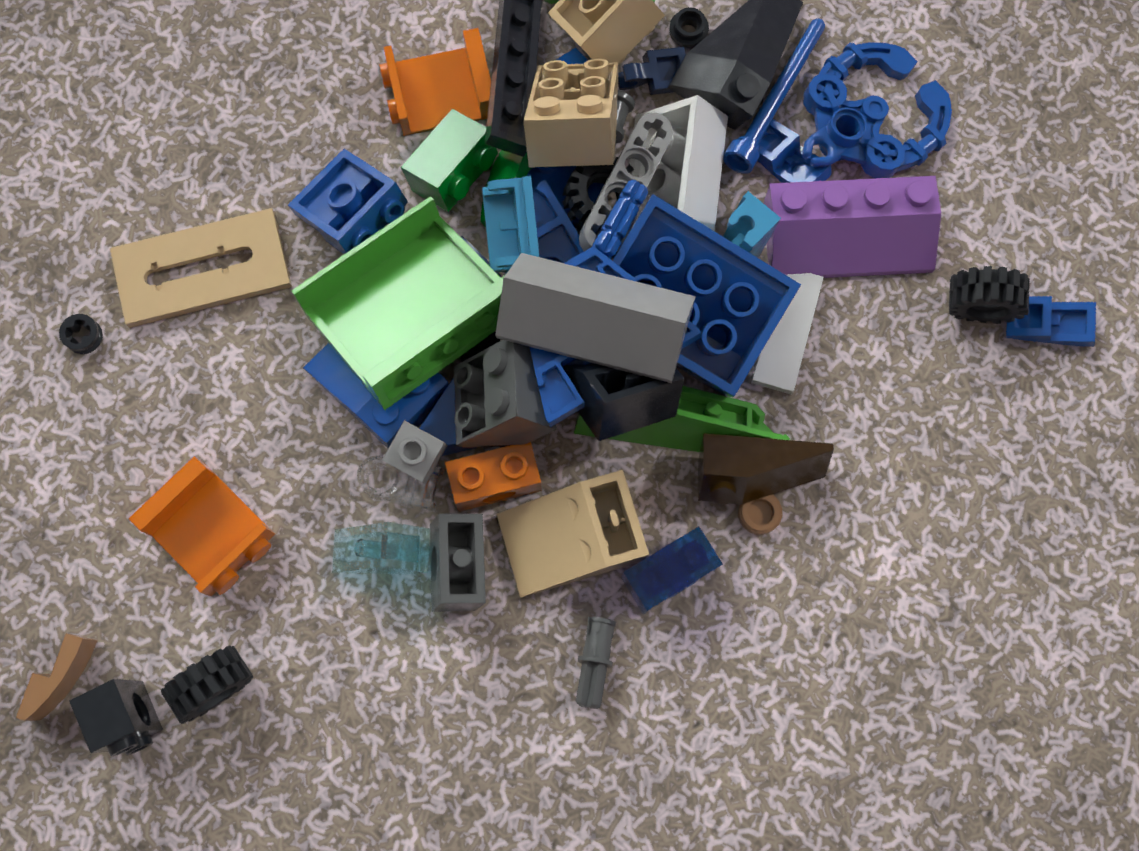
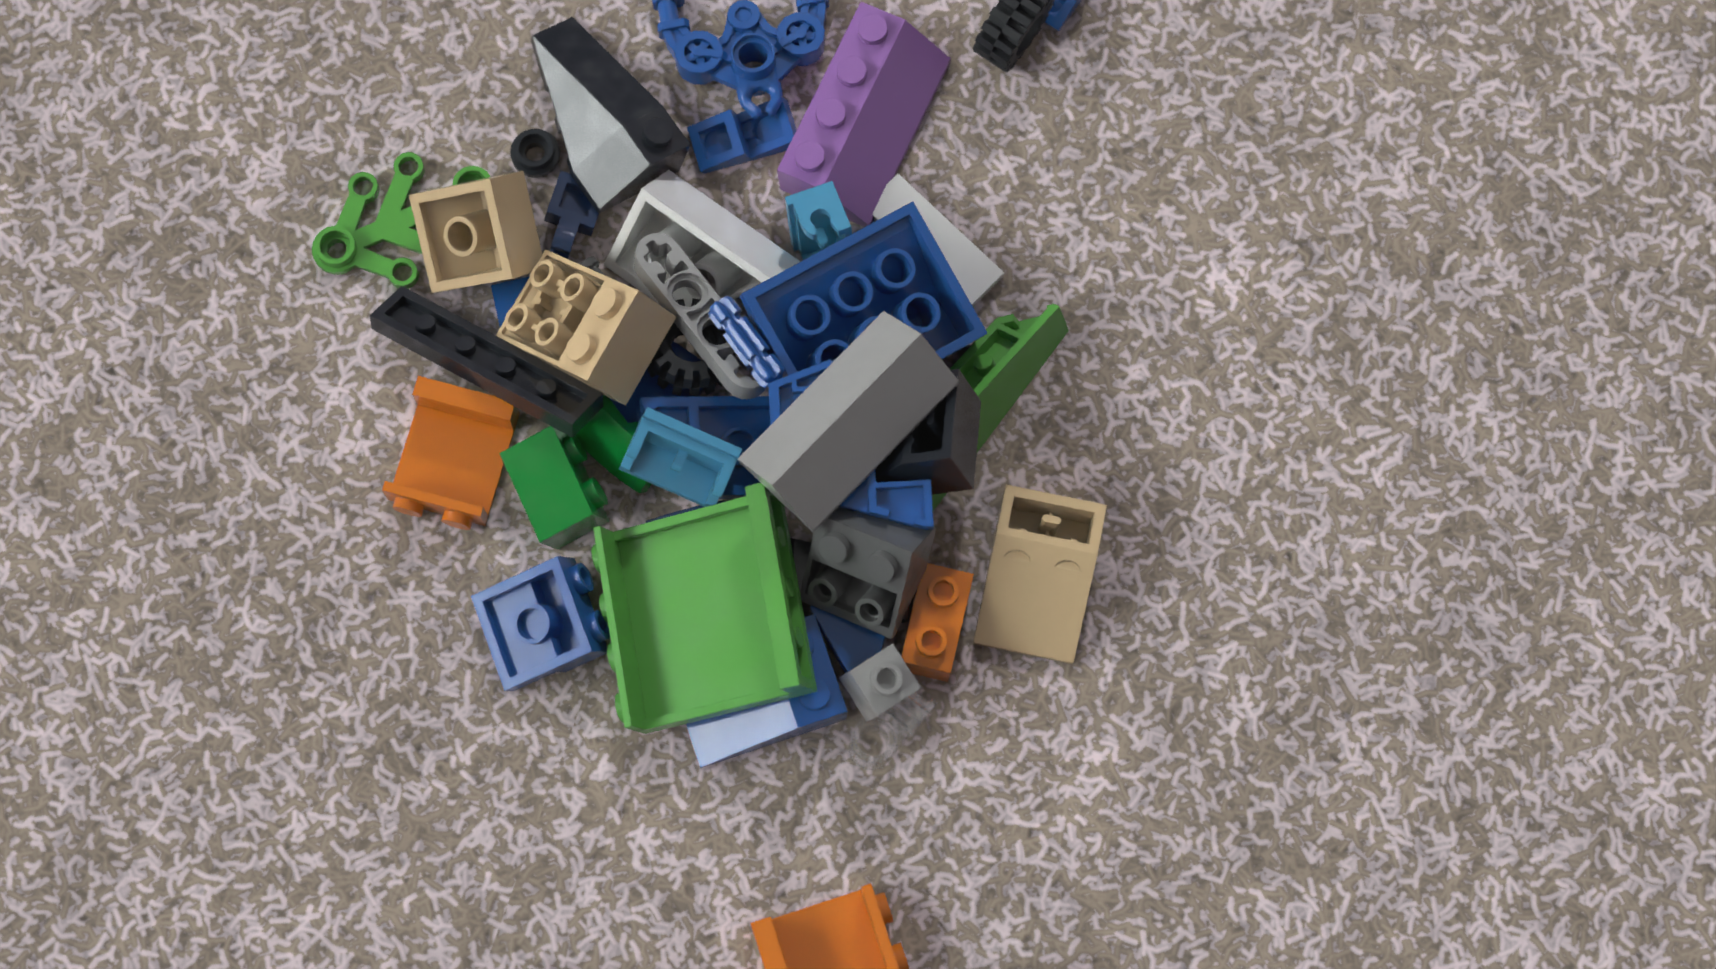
camera: 65 degrees left, 0 degrees up
(260, 275) = (533, 900): tan piece -> none
(381, 549) = (950, 780): clear light blue slope -> none
(457, 562) = (1009, 705): dark grey brick -> none
(595, 662) = (1177, 621): dark grey axle -> none
(671, 570) = (1130, 493): clear blue brick -> none
(743, 152) = (718, 177): blue piece -> none
(753, 467) = (1063, 362): dark brown slope -> none
(760, 515) = (1111, 376): medium nougat tile -> none

